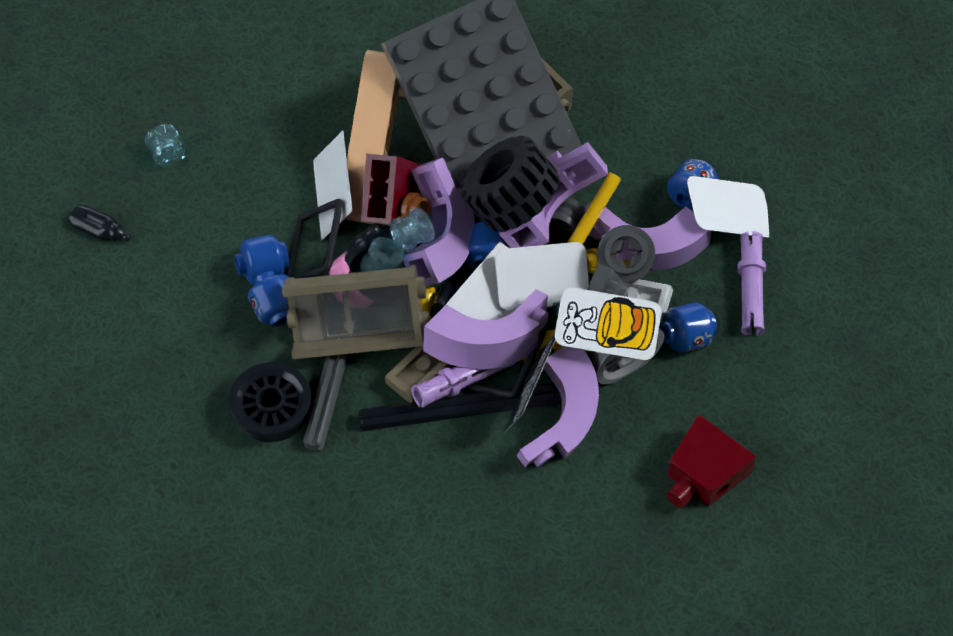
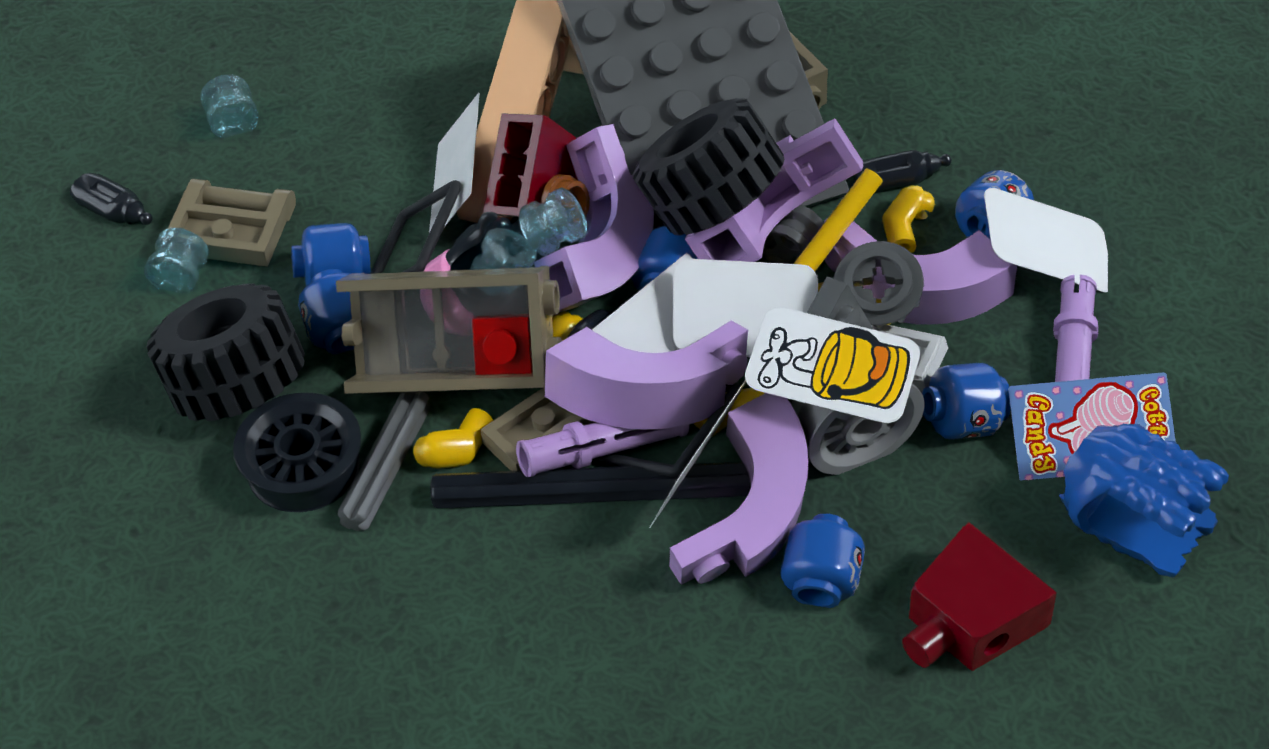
camera: 10 degrees right, 10 degrees down
(157, 269) = (176, 260): none -> clear light blue wheel
(181, 243) = (235, 222): none -> dark tan plate
(211, 338) = (226, 352): none -> black tyre
(367, 388) = (453, 446): none -> yellow arm
(392, 318) = (502, 344): none -> red plate
(612, 445) = (822, 561): none -> blue head
(627, 156) = (904, 168): none -> black piece
(631, 191) = (897, 219): none -> yellow arm
(768, 337) = (1058, 415): none -> sticker
(801, 385) = (1141, 494): none -> blue piece

